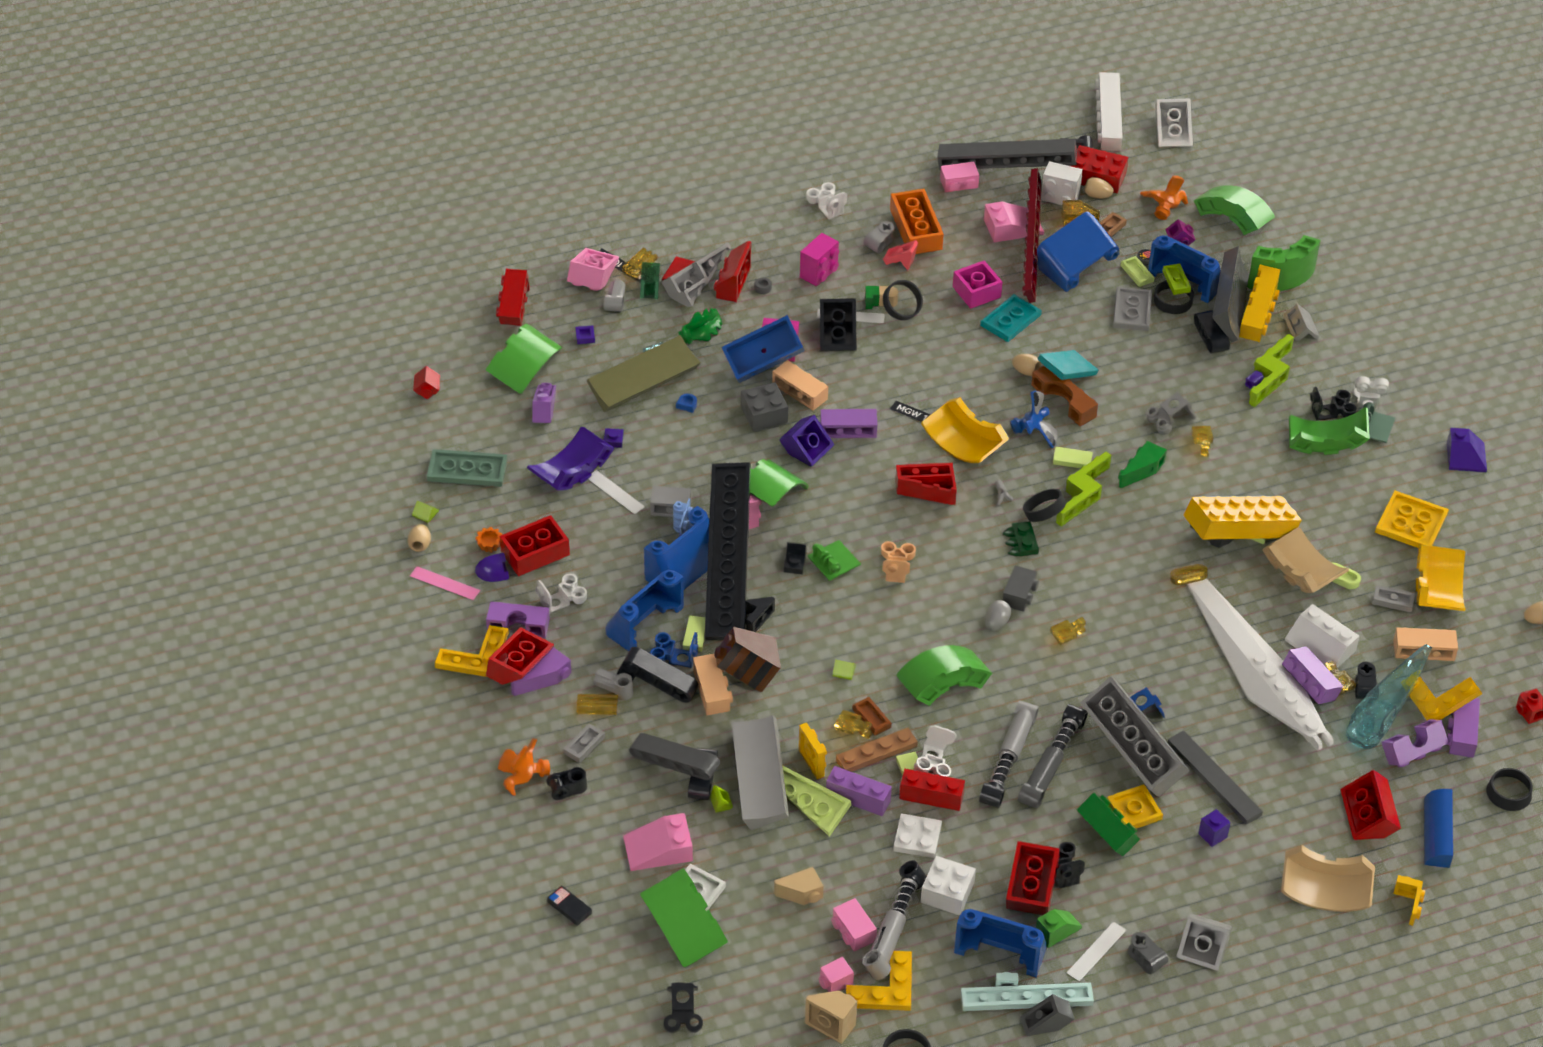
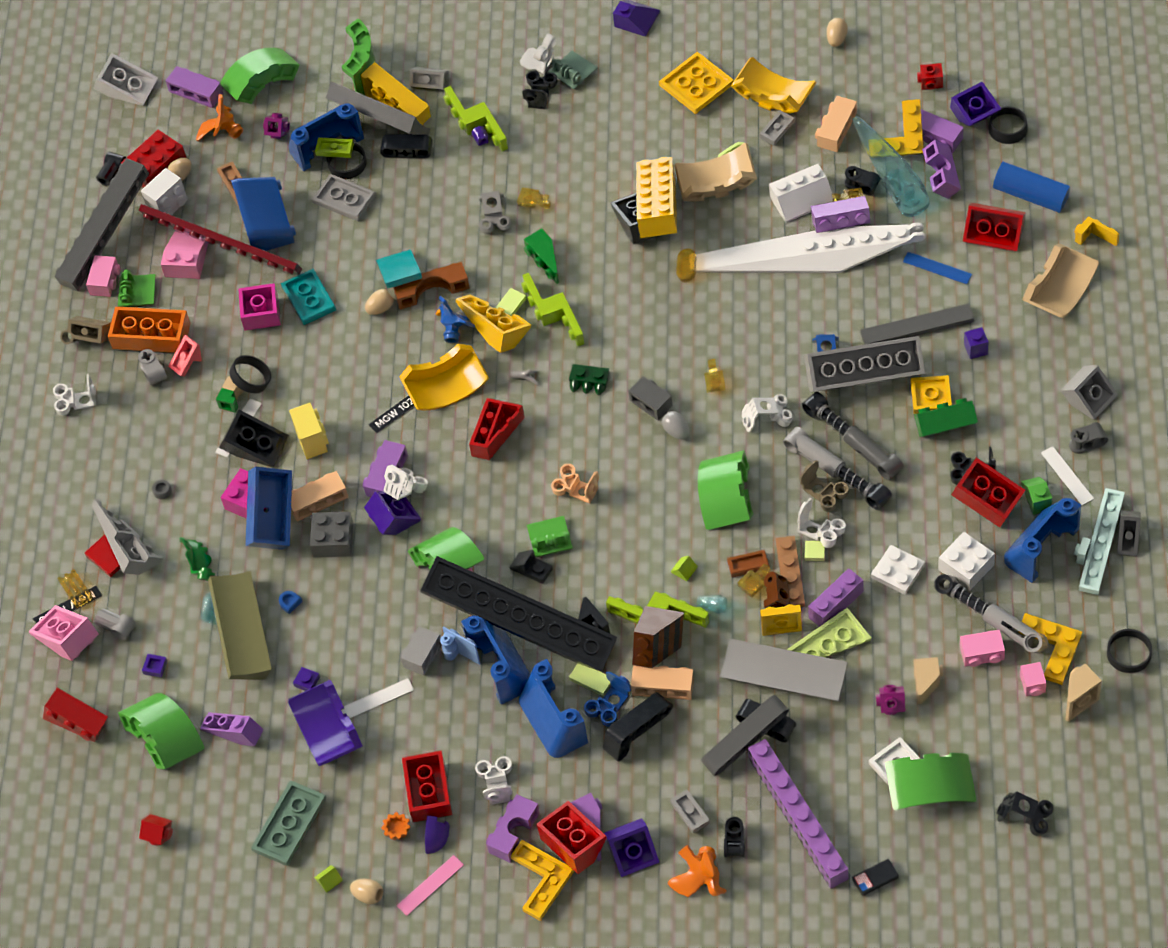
camera: 60 degrees left, 10 degrees up
(530, 709) = (631, 847): none -> dark purple slope
(597, 701) = (650, 773): clear yellow tile -> none
(610, 823) = (798, 813): none -> medium lavender brick
(619, 684) = (626, 766): light grey piece -> none
(650, 280) = (107, 584): clear green slope -> none
(659, 843) = (834, 780): bright pink slope -> none
(720, 799) = (800, 715): lime slope -> none
(734, 273) = (139, 505): red slope -> none
(763, 864) = (891, 699): none -> magenta brick
(790, 660) = (659, 600): none -> lime bracket
(813, 701) = (713, 603): none -> clear light blue cone
(819, 259) = (162, 426): dark pink brick -> none
(843, 440) = (403, 481): none -> white piece
(845, 741) = (776, 590): none -> reddish brown leg
(860, 355) = (309, 430): none -> light yellow brick
(894, 179) = (86, 329): none -> dark tan hinge
(932, 789) = (856, 540): red brick -> none
(957, 202) = (136, 289): none -> bright green hinge
(986, 735) = (828, 494): none -> dark tan piece
(1045, 450) = (496, 327): none -> yellow wedge
(1048, 512) = (549, 340): black tyre -> none
(1052, 684) = (776, 409): none -> white piece
(1073, 208) = (203, 197): clear yellow slope -> none
(1108, 111) = (79, 125): white brick -> none
(1137, 271) = (298, 177): yellowish green tile -> none
(1144, 256) = (284, 164): tile -> none
(1195, 170) = (194, 86): none -> medium lavender brick
(1296, 777) = (937, 267): none -> blue sticker
(1329, 436) = (572, 100): bright green panel -> none
(1513, 747) = (974, 104): none -> dark purple slope

